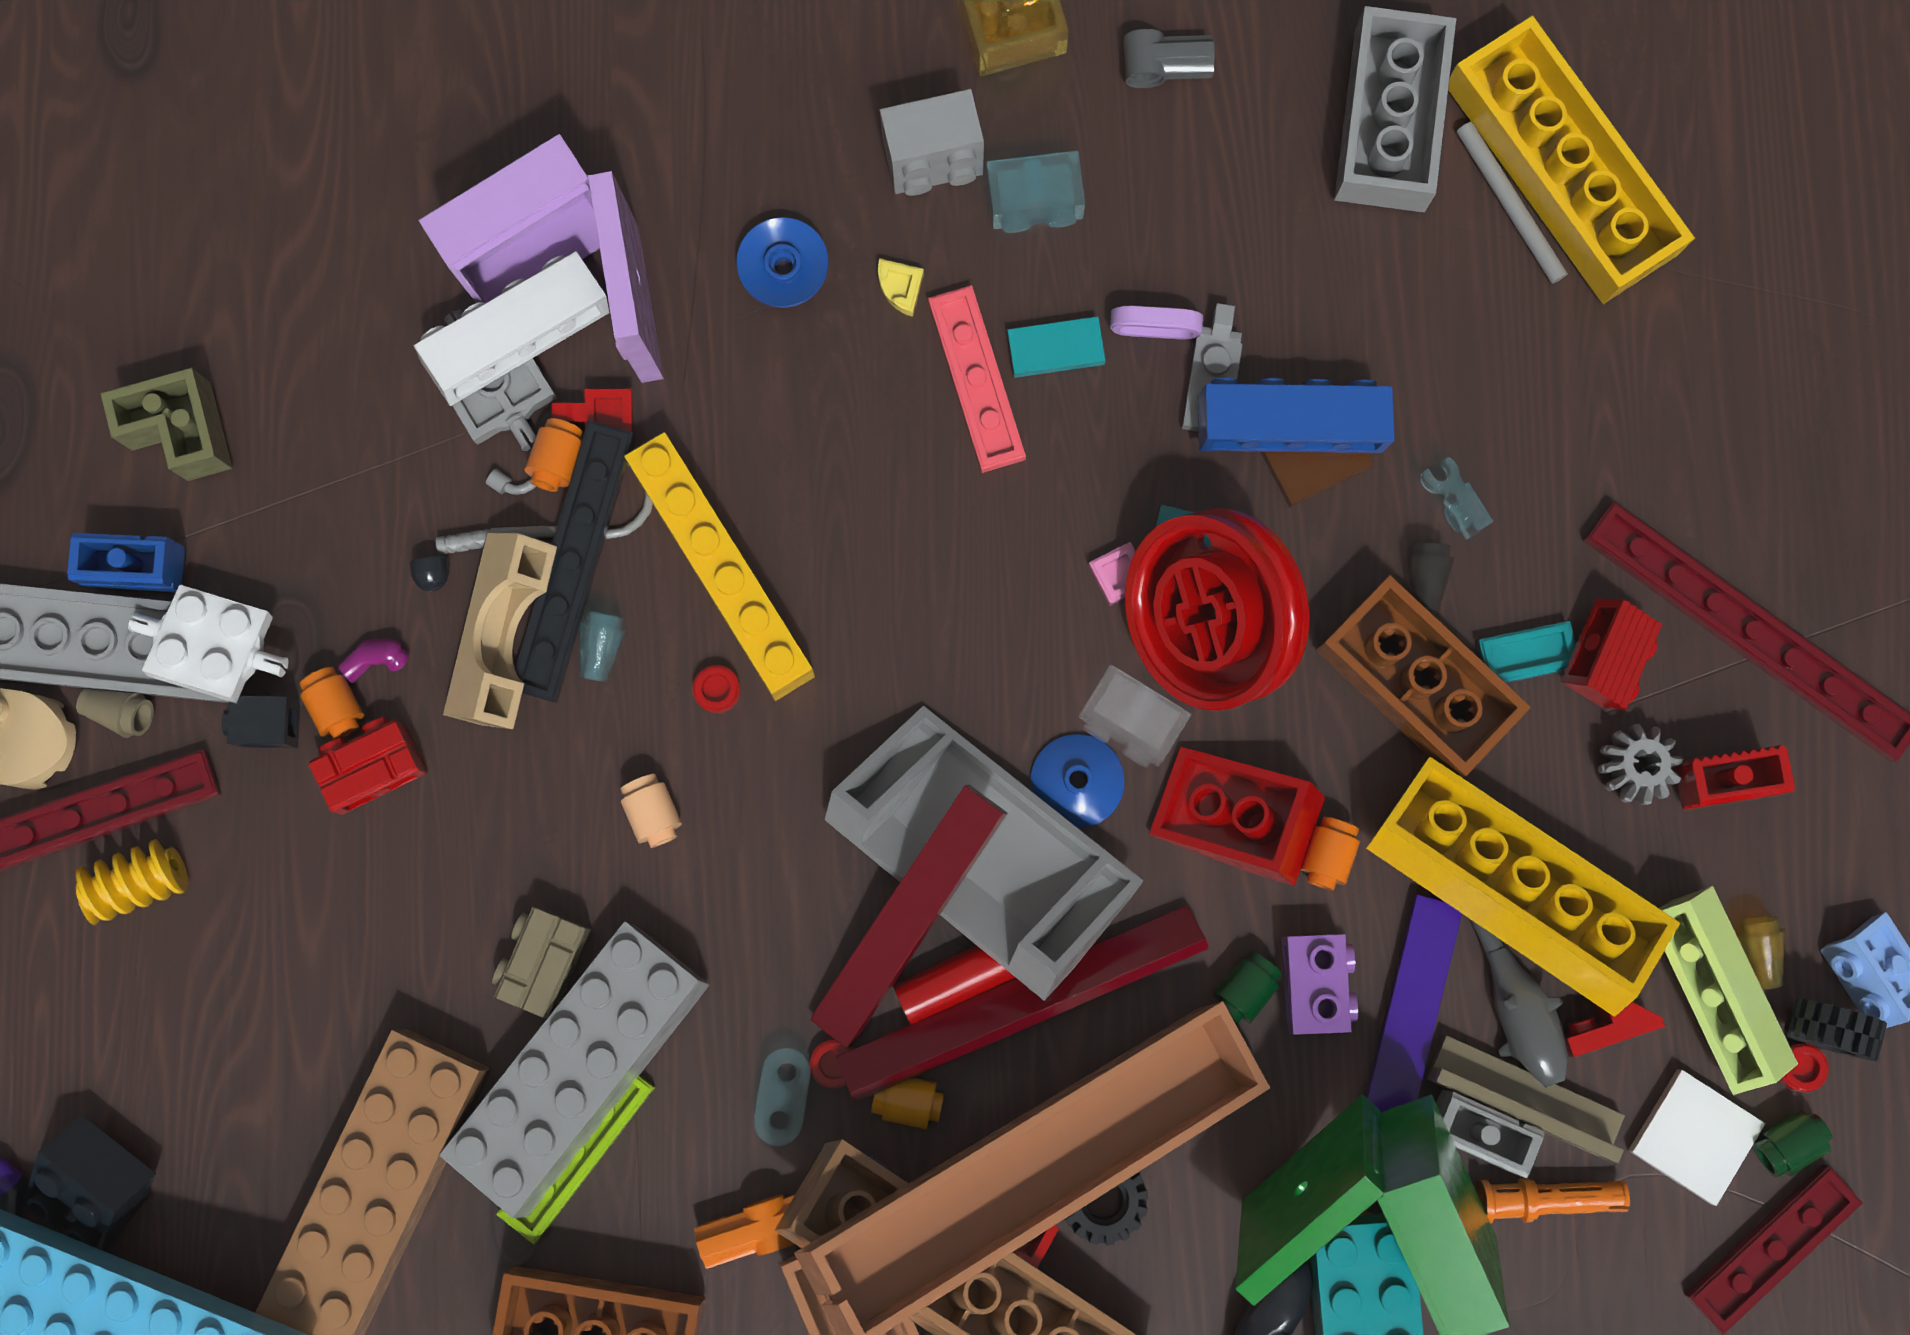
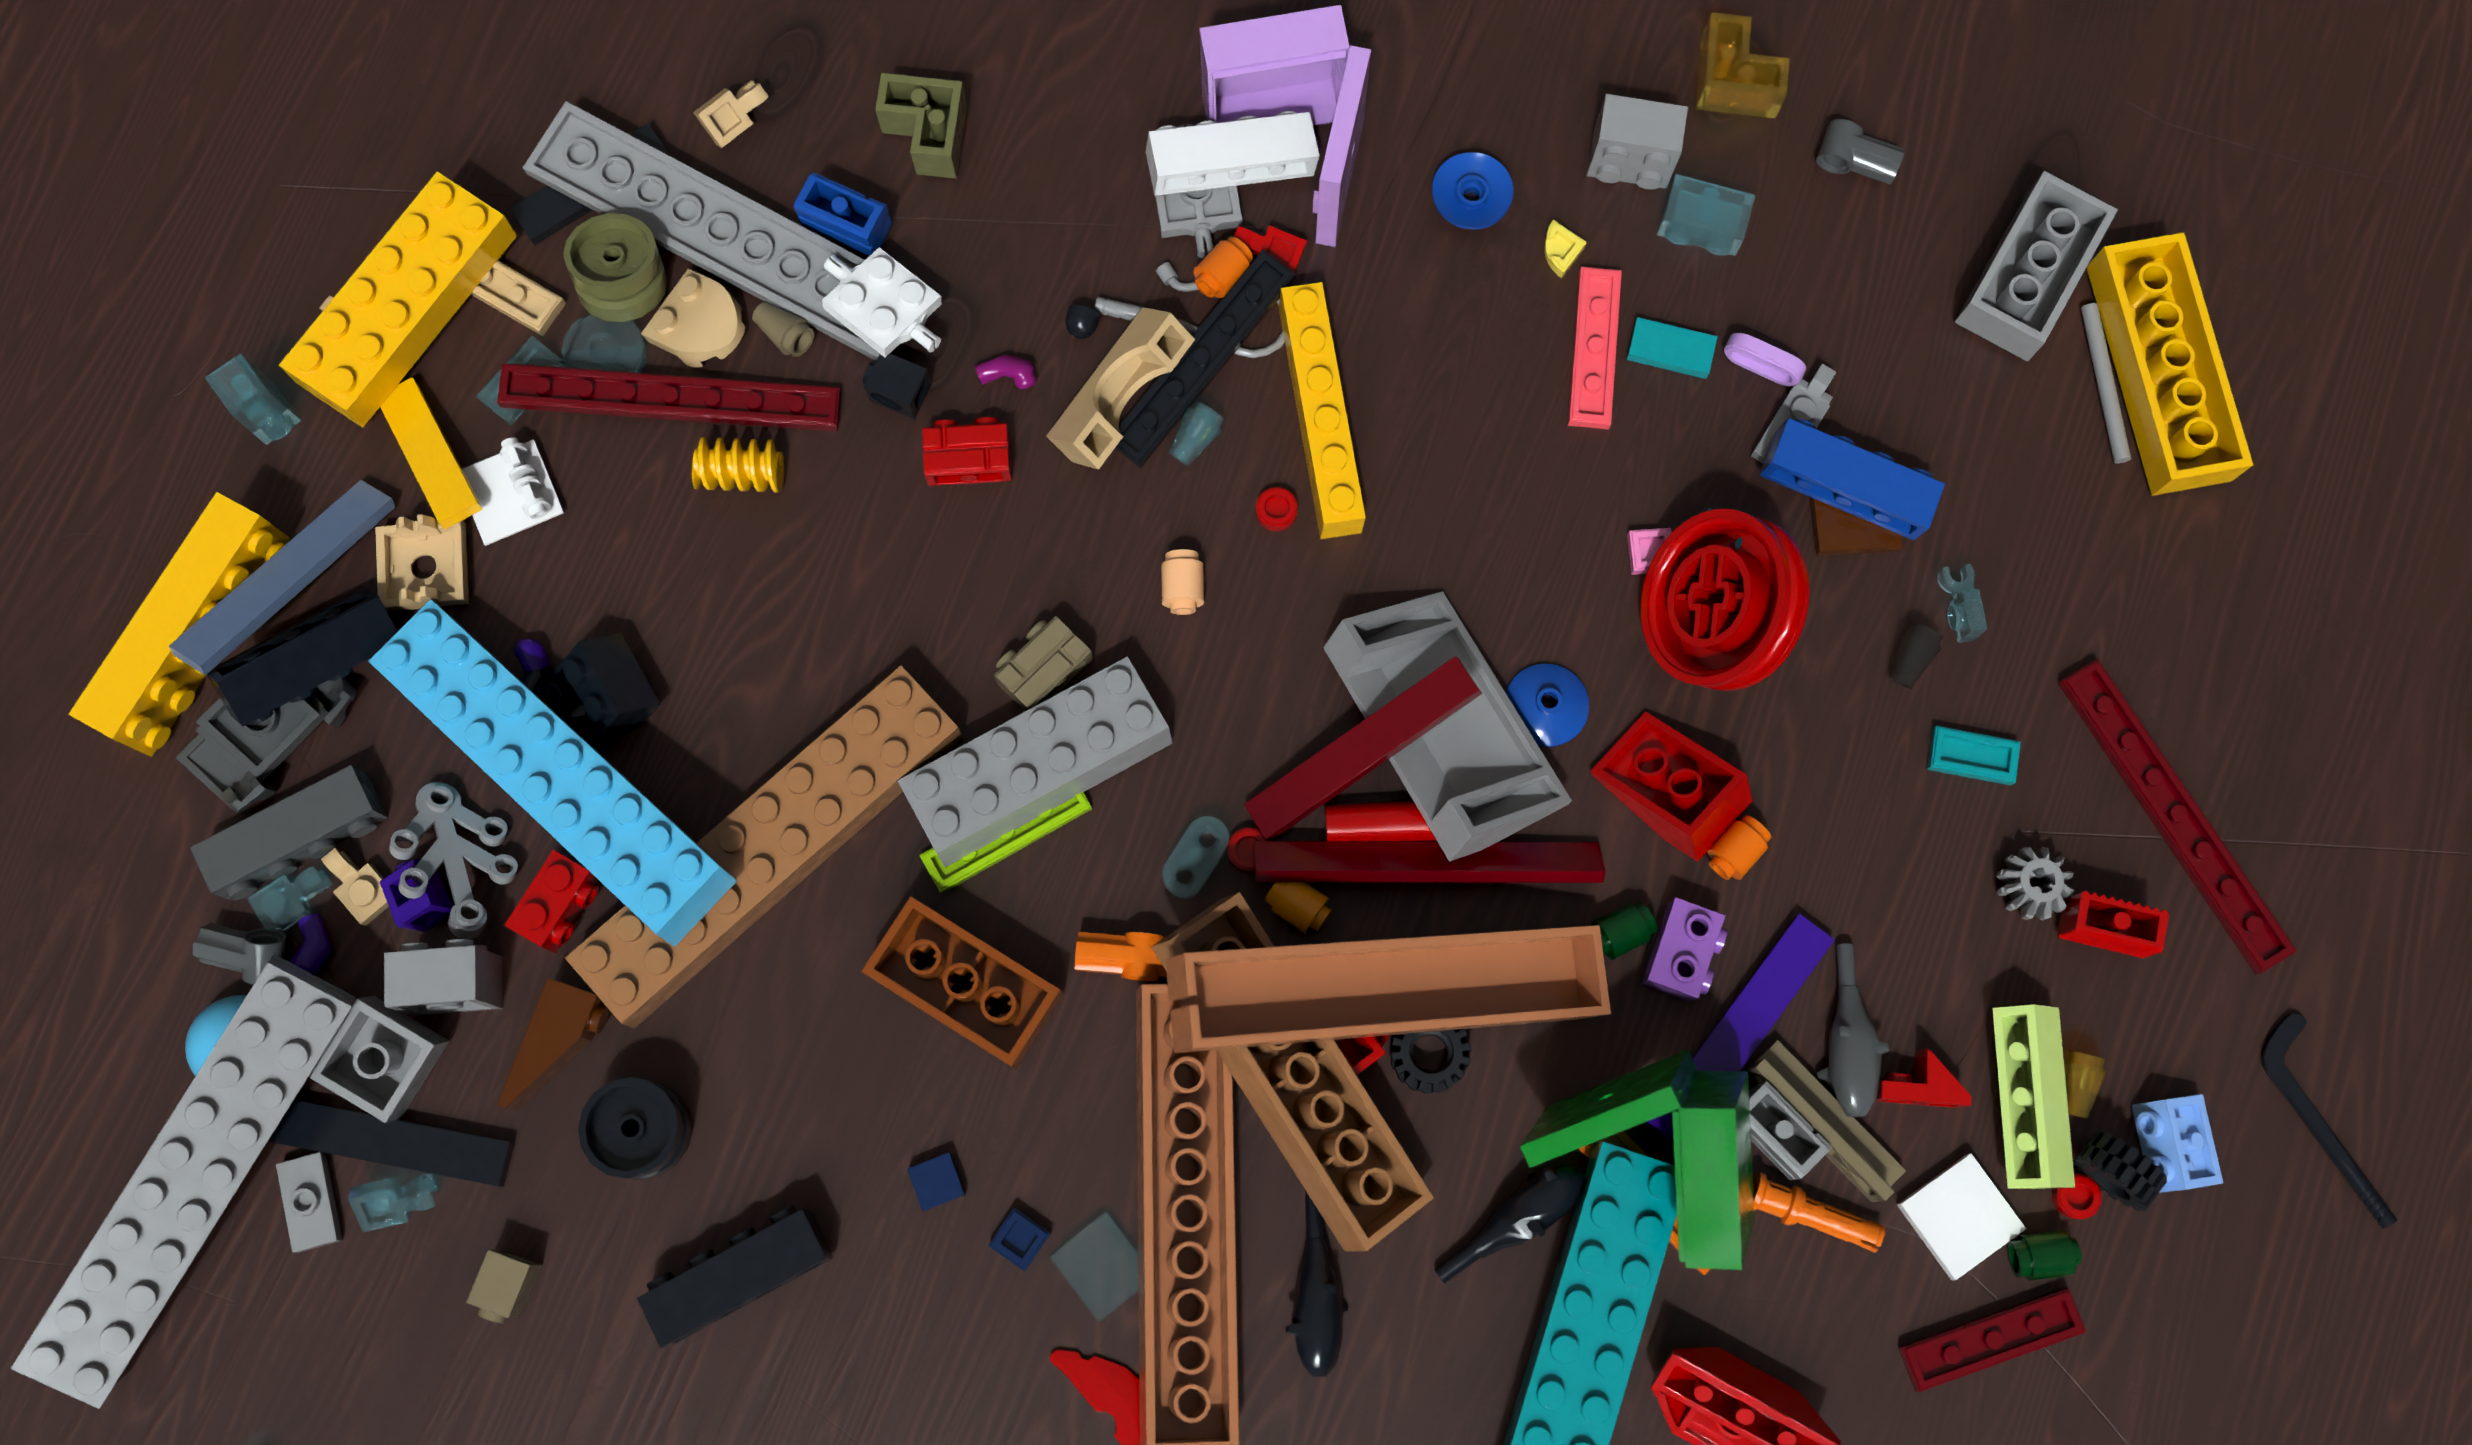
camera: 20 degrees right, 5 degrees down
(331, 703) = (958, 391): orange brick -> none
(1133, 717) = (1616, 669): clear brick -> none
(1453, 674) = (1885, 709): dark orange brick -> none
(1524, 887) = (1894, 935): yellow brick -> none
(1612, 653) = (2047, 780): red brick -> none

